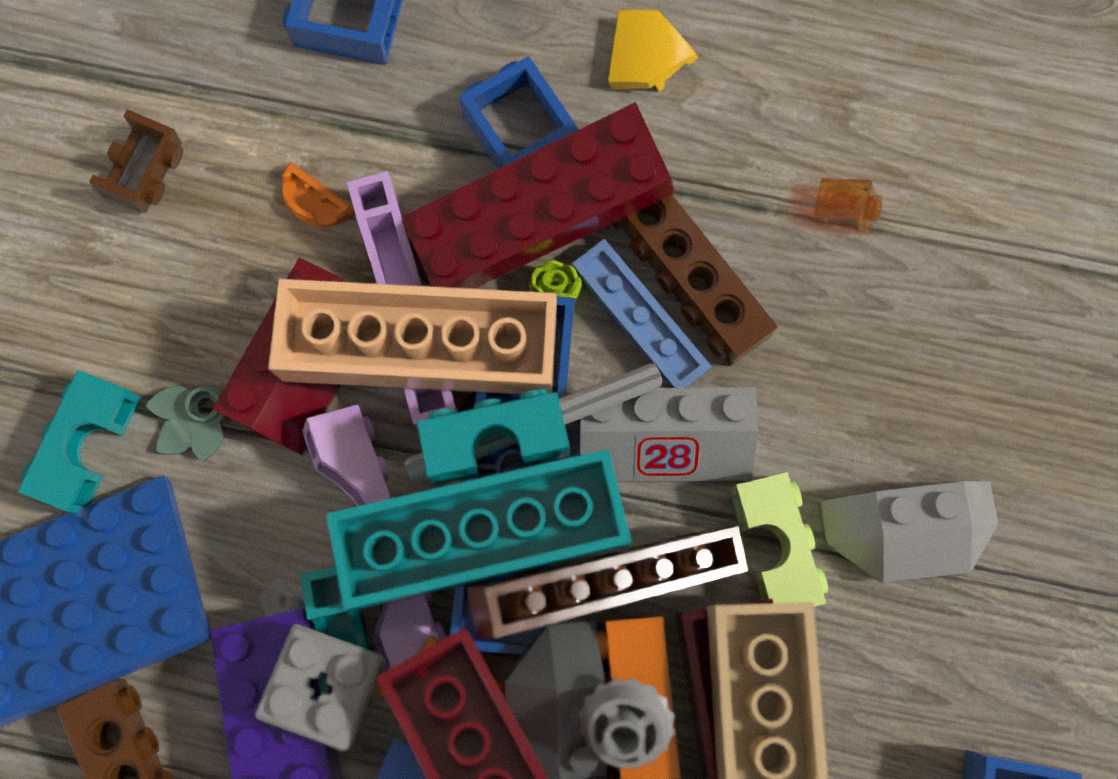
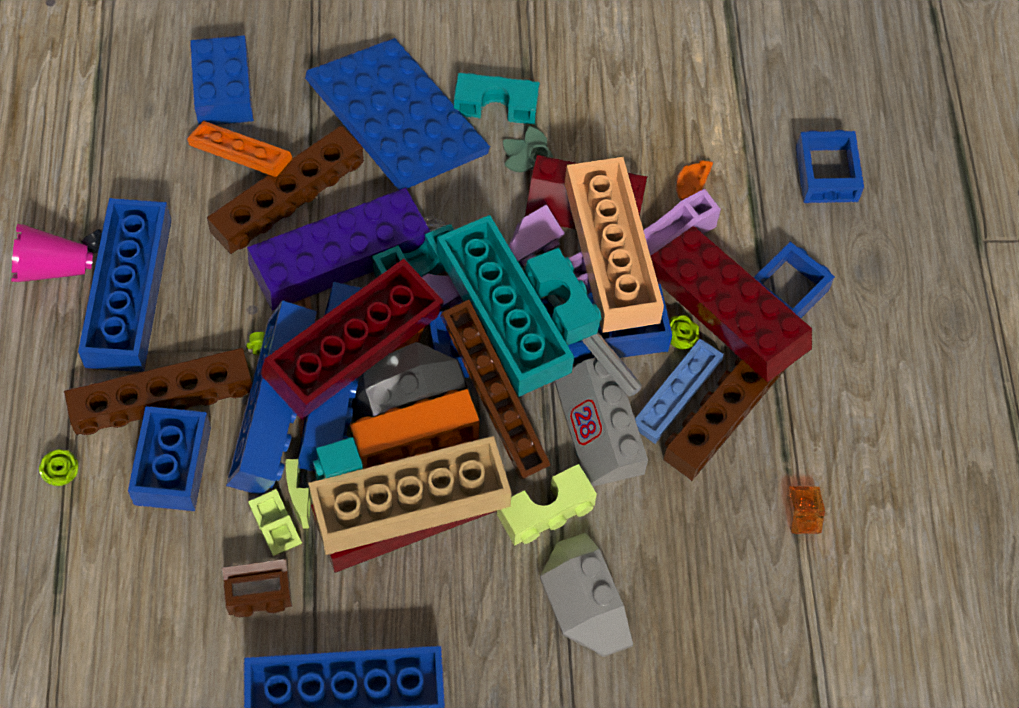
camera: 75 degrees right, 15 degrees down
(140, 163) = (680, 82): reddish brown window -> none
(291, 701) = (380, 230): light grey brick -> none
(626, 723) = (409, 405): light grey piece -> none
(646, 51) = (873, 355): yellow slope -> none

